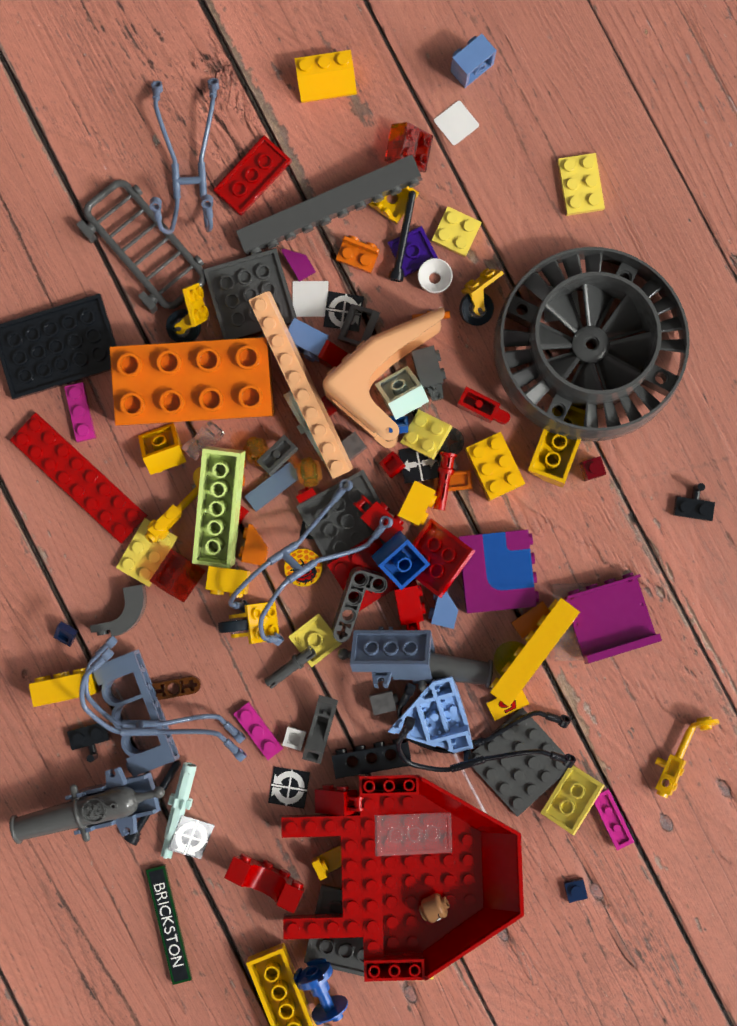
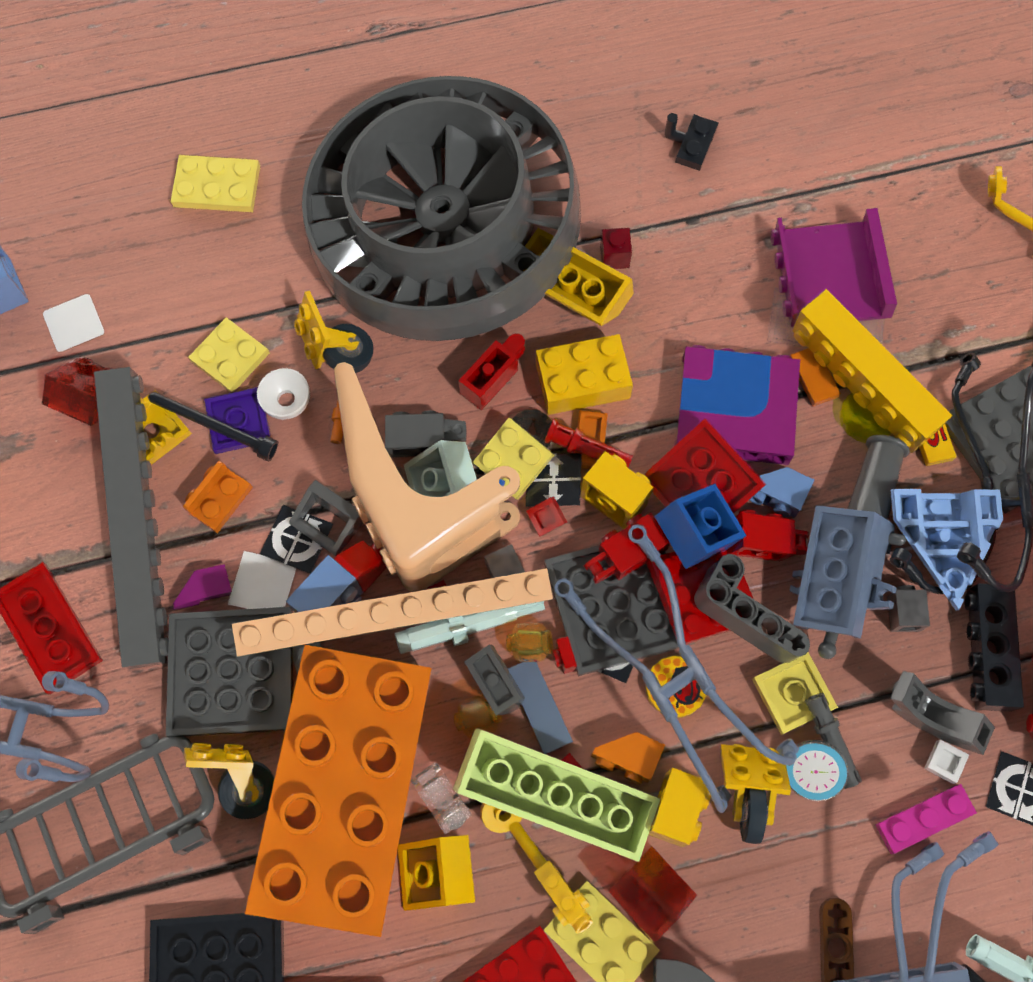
camera: 80 degrees left, 15 degrees down
(270, 660) = (818, 771): none -> piece

